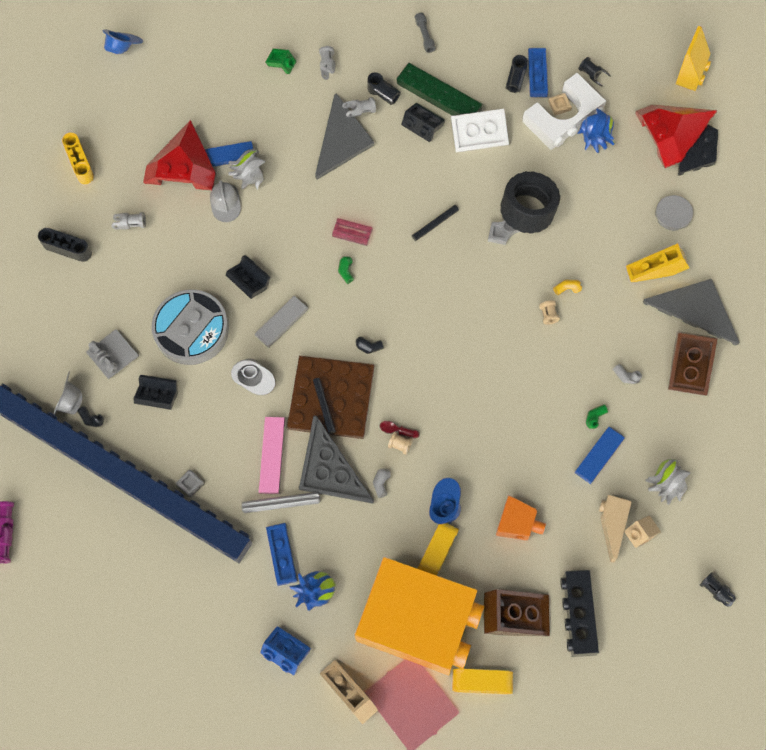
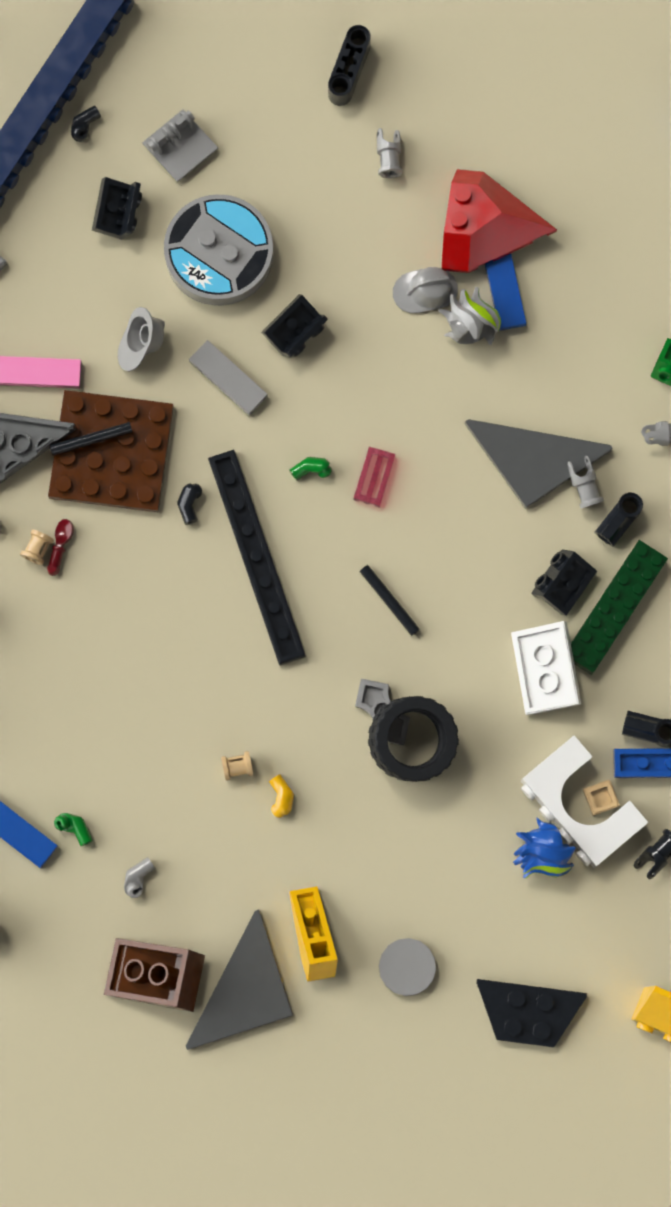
camera: 85 degrees right, 10 degrees up
(70, 399) = (109, 93): light grey piece -> none
(72, 151) = (505, 73): yellow beam -> none
(405, 303) = (256, 557): none -> black tile
(674, 129) = (550, 971): red wedge -> none

